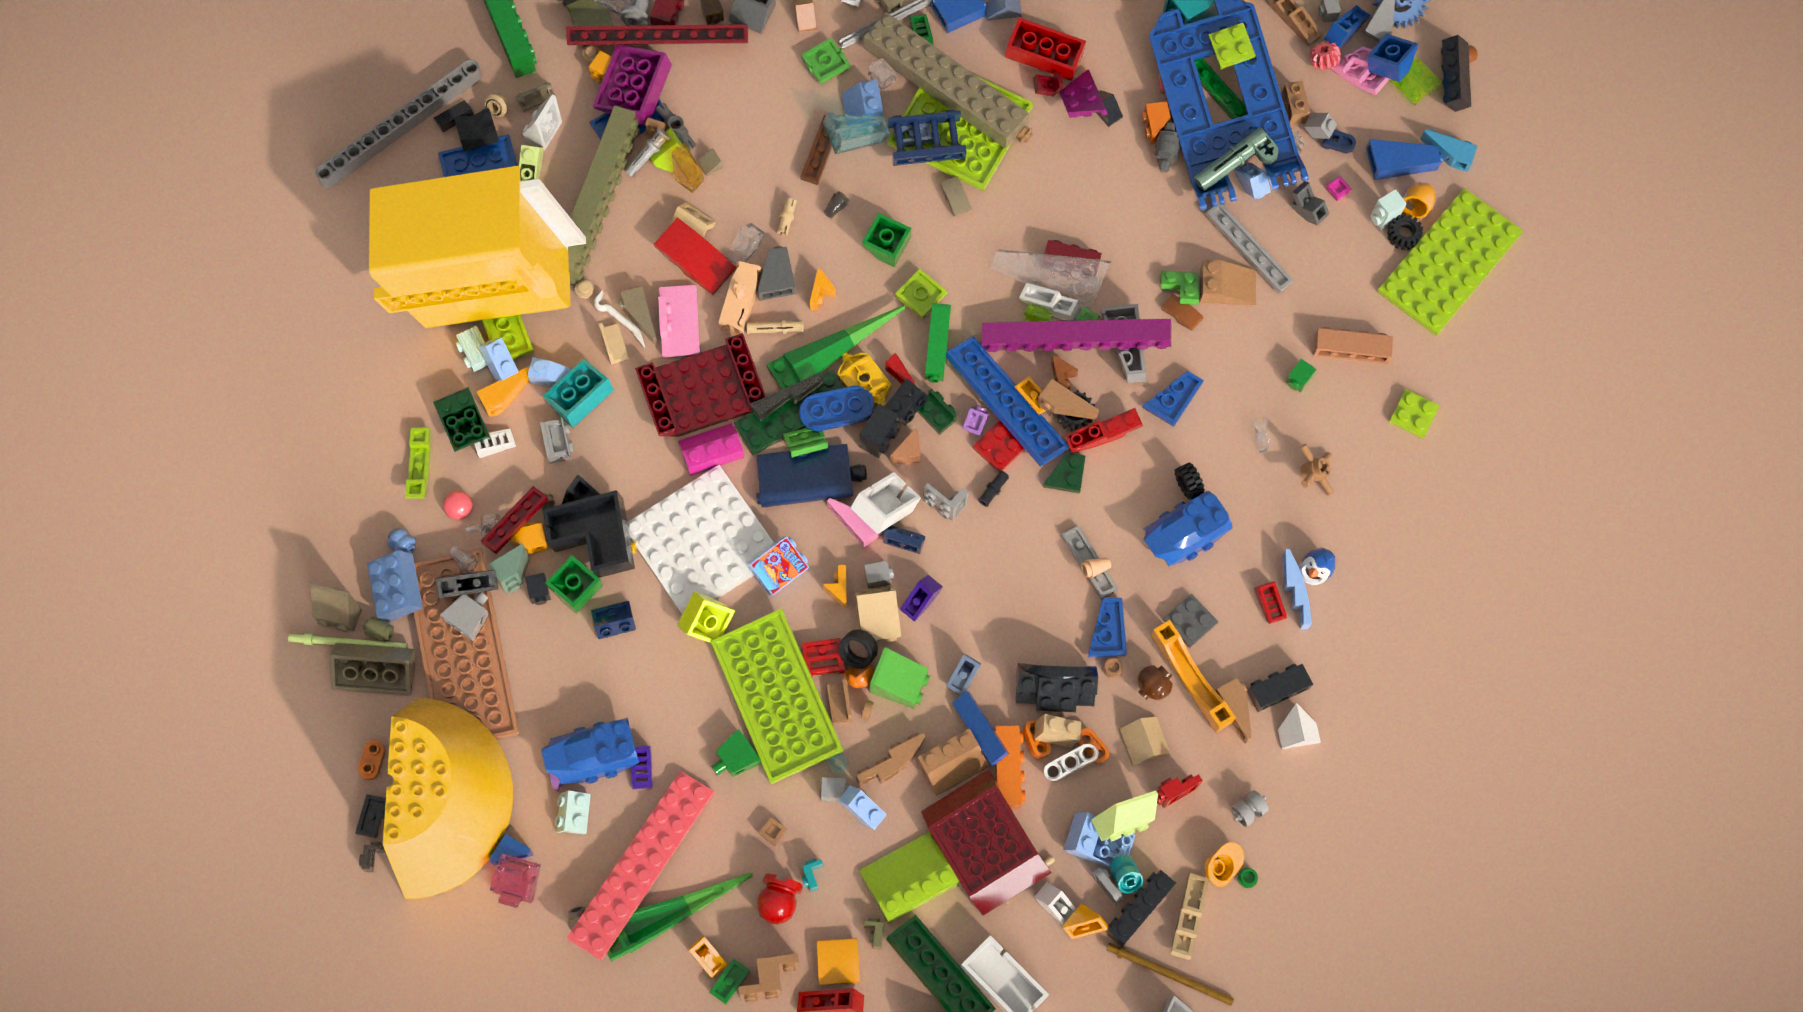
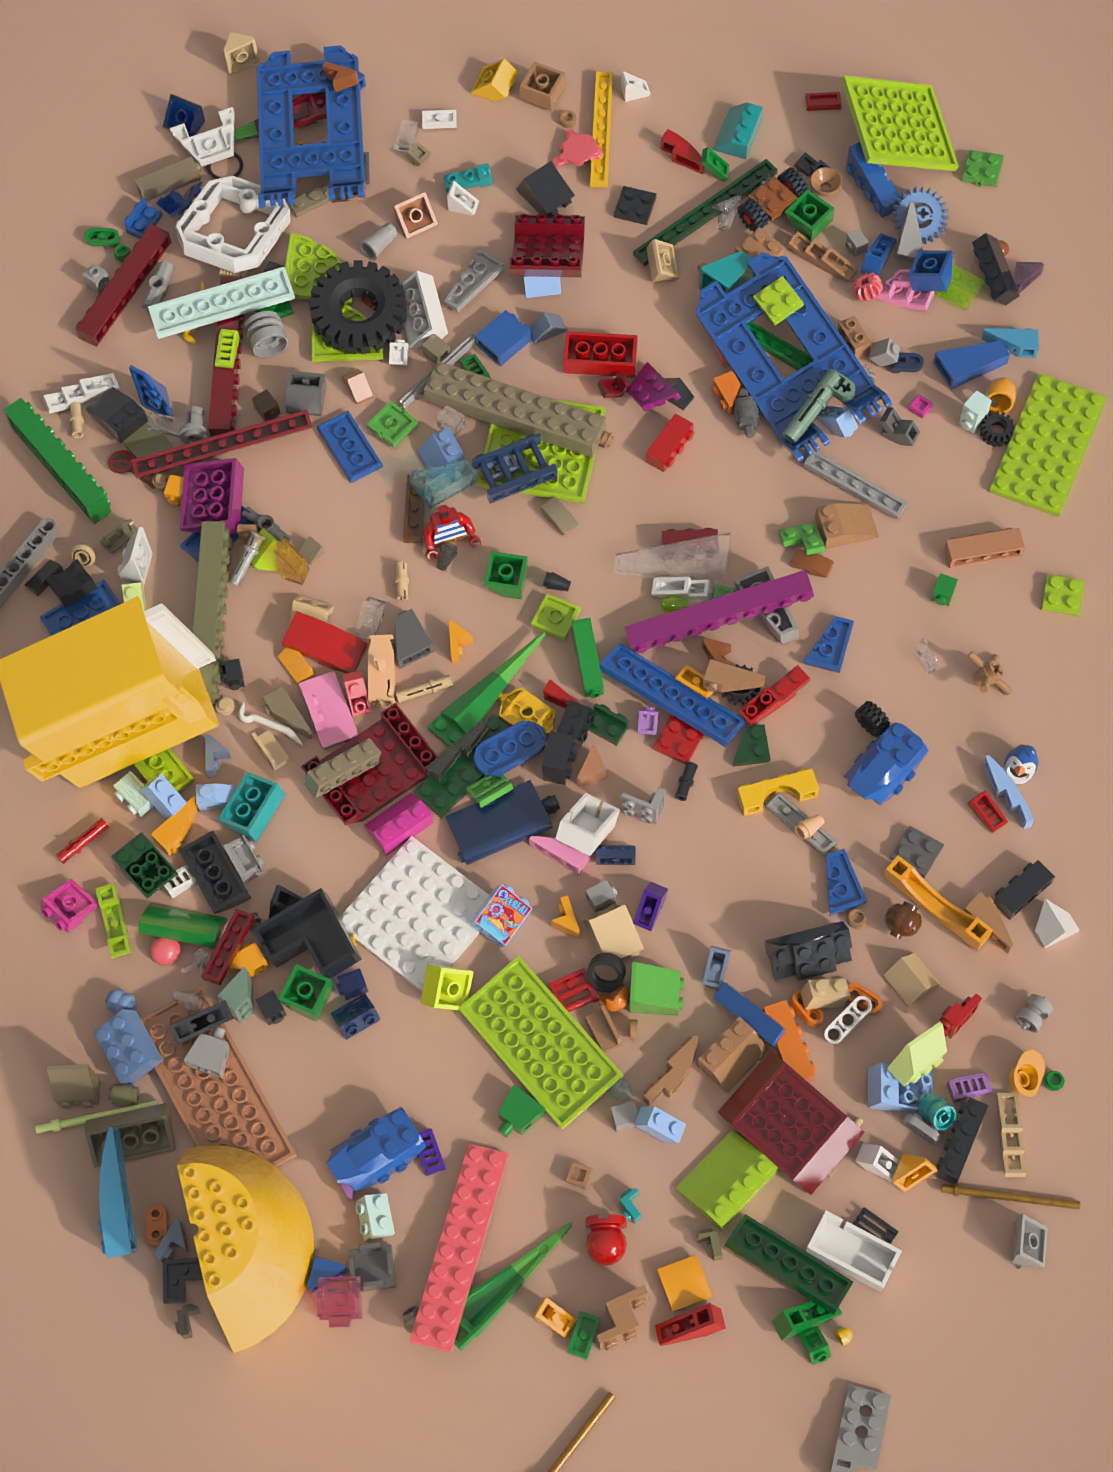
camera: 10 degrees left, 5 degrees down
(337, 726) = (114, 1200): none -> dark azure slope
(372, 784) = (174, 1236): none -> sand blue slope
(380, 436) = (67, 905): none -> dark pink plate
(405, 382) = (80, 842): none -> red pin
(479, 486) = (182, 925): none -> green slope
(525, 446) = (214, 873): none -> black slope
(557, 26) = (121, 463): none -> piece
(557, 858) = (374, 1266): none -> dark grey panel
(558, 331) = (213, 752): none -> sand blue slope
(600, 260) = (233, 674): none -> black brick
(619, 589) = (352, 984): none -> clear blue brick
(662, 269) = (295, 665): none -> light orange slope
(672, 381) = (342, 768): none -> dark tan brick
(710, 313) = (357, 693): none -> coral slope
(778, 71) = (349, 446): none -> blue tile
(845, 176) = (449, 527): none -> red torso
(932, 260) = (556, 582): none -> black cone
(1022, 950) = (864, 1211): none -> black tile
(1084, 155) = (669, 443): none -> red brick
(1101, 523) = (799, 784): none -> yellow arch
(1166, 852) = (956, 1097): none -> medium lavender slope
(1485, 86) = (1026, 273): none -> clear purple slope

